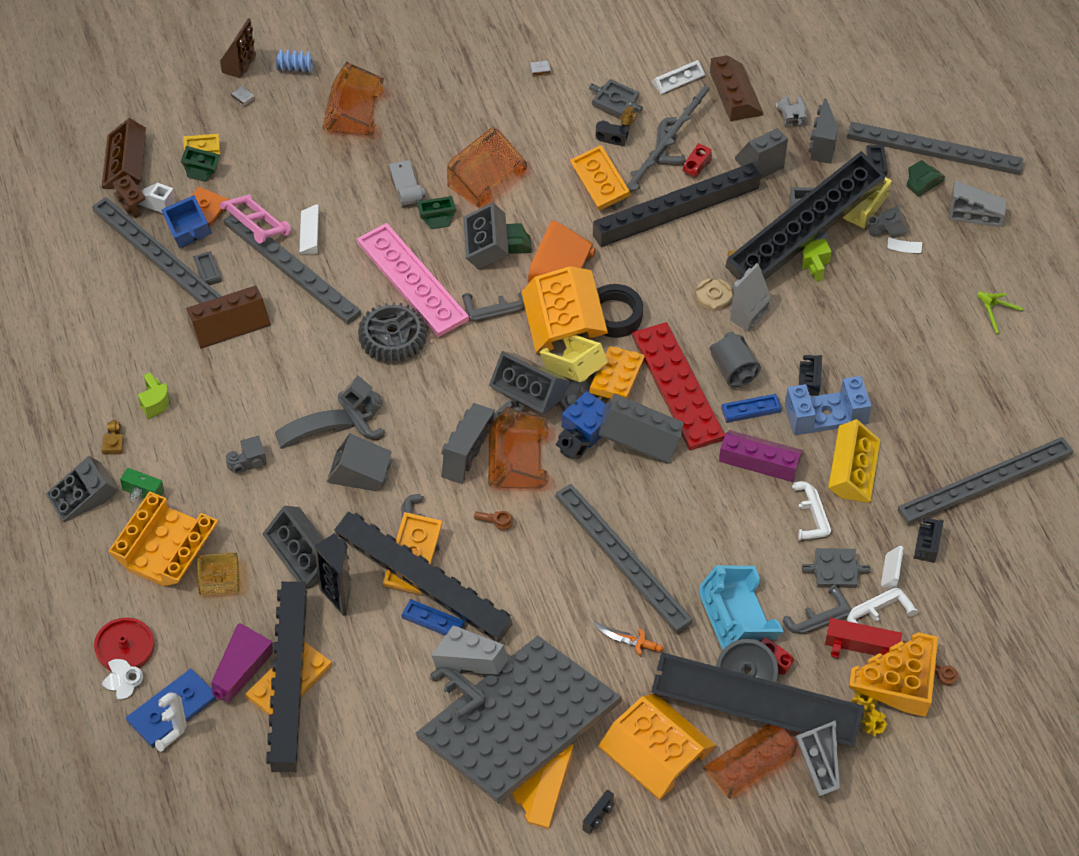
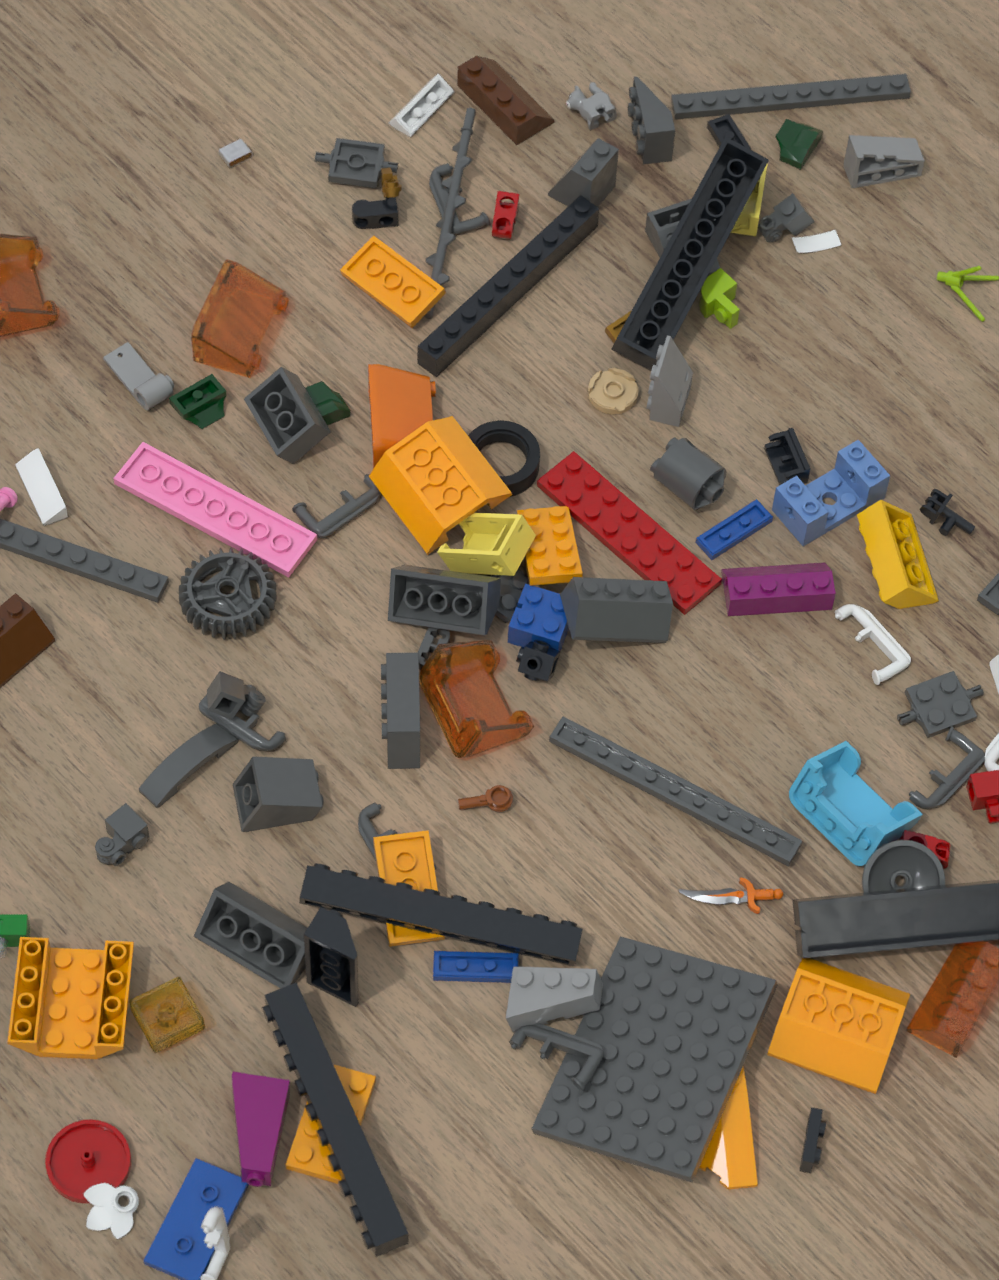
camera: 25 degrees left, 5 degrees up
(902, 439) = (937, 506): none -> black arm

